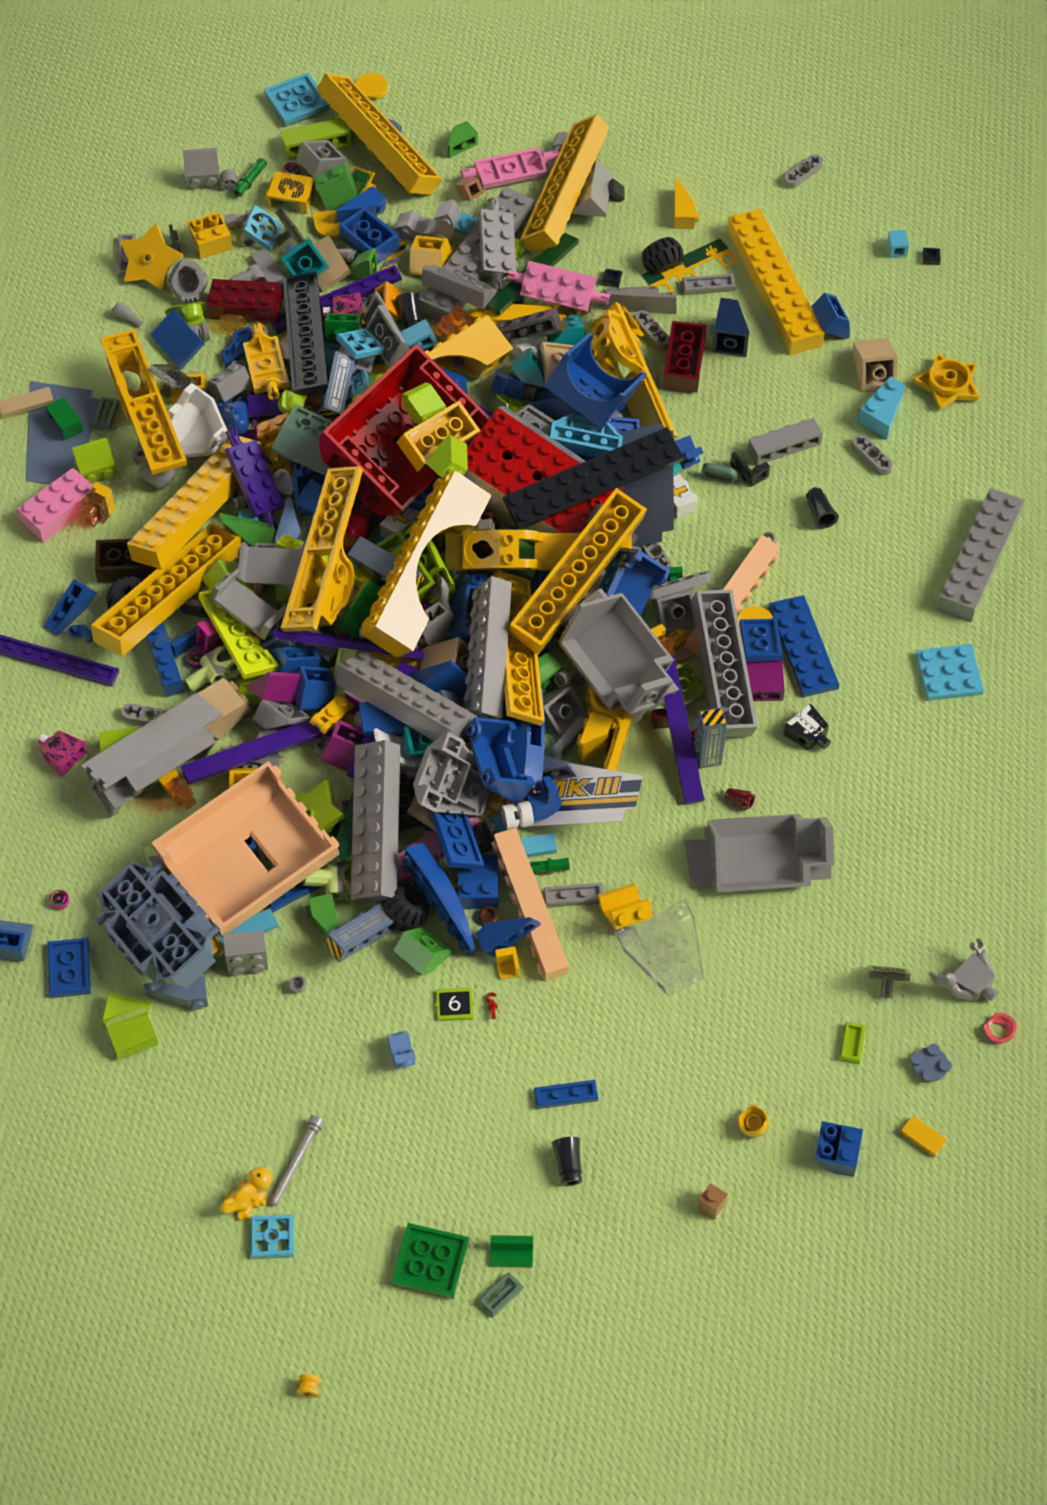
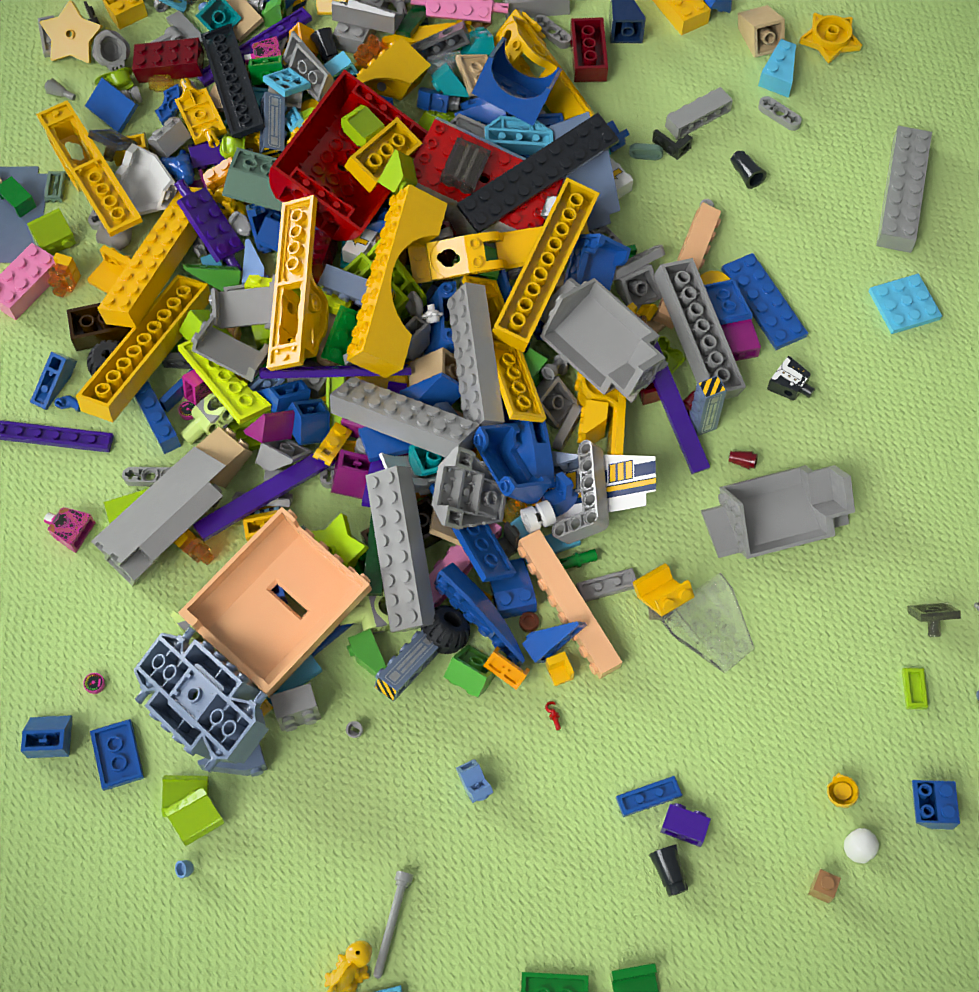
camera: 10 degrees left, 5 degrees up
(113, 1078) = (184, 868): none -> medium blue hinge
(144, 507) = (109, 270): none -> yellow bracket
(454, 952) = (505, 669): none -> light orange hinge
(454, 1004) = (516, 721): piece -> none
(455, 604) = (432, 315): none -> white plant
(518, 460) = (465, 166): none -> clear smoke brick
(575, 805) = (593, 495): none -> light grey beam
(594, 1124) = (685, 824): none -> dark purple brick
(759, 1173) = (861, 845): none -> white hair

